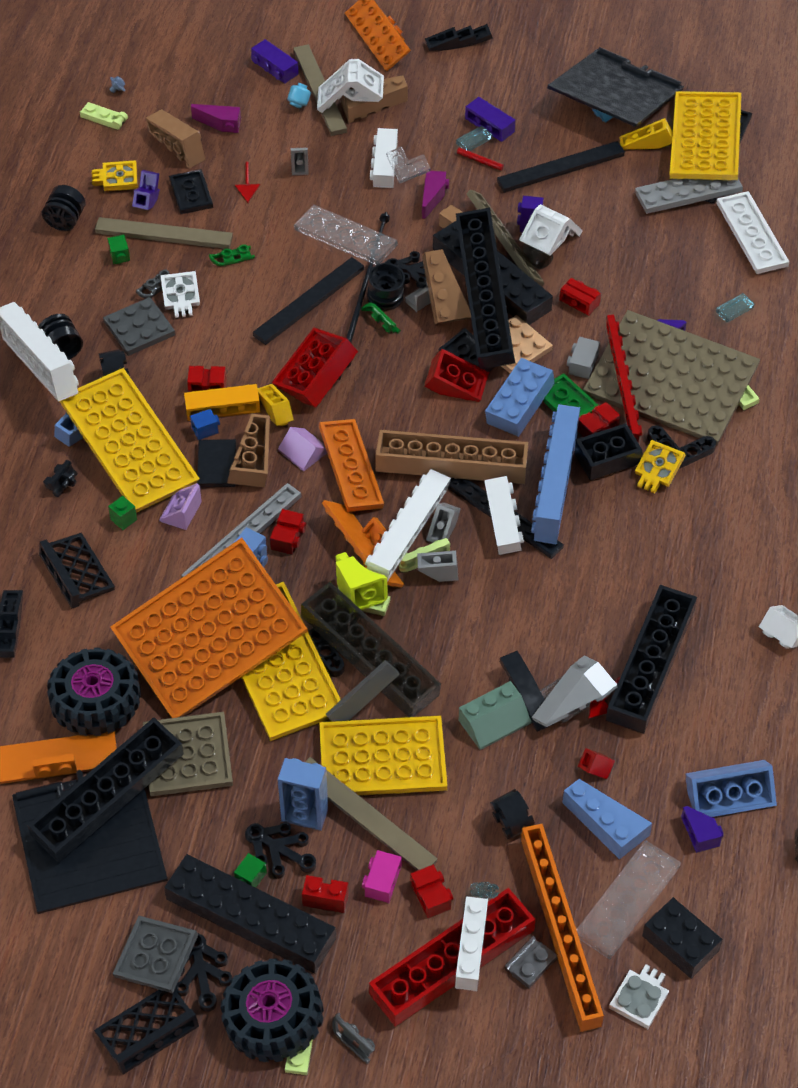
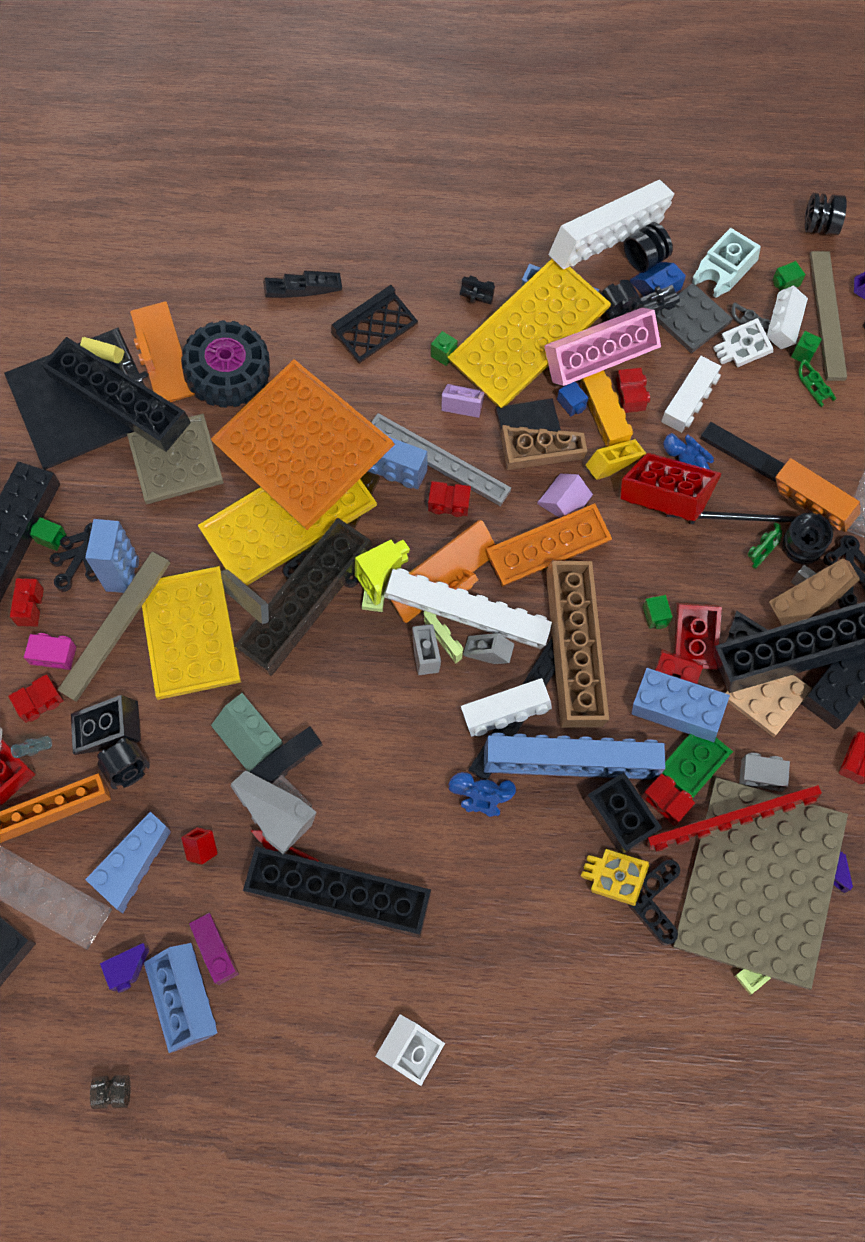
camera: 80 degrees right, 15 degrees up
(46, 799) = (103, 350): none -> light yellow brick
(91, 286) = (727, 261): none -> light aqua brick
(95, 339) = (661, 275): none -> blue slope
(123, 337) = (661, 299): none -> black hips
(163, 257) = (787, 317): none -> white brick
(163, 386) = (602, 346): none -> bright pink brick
(197, 251) = (806, 347): none -> green brick
(222, 339) = (691, 393): none -> white brick
(281, 349) = (691, 453): none -> blue animal
(352, 267) = (817, 495): none -> orange brick
(431, 400) = (657, 612): none -> green brick
(469, 833) = (105, 724): none -> black slope
(485, 393) = (672, 663): none -> red brick
(576, 544) = (483, 793): none -> blue animal
(694, 758) = (213, 949): none -> magenta slope

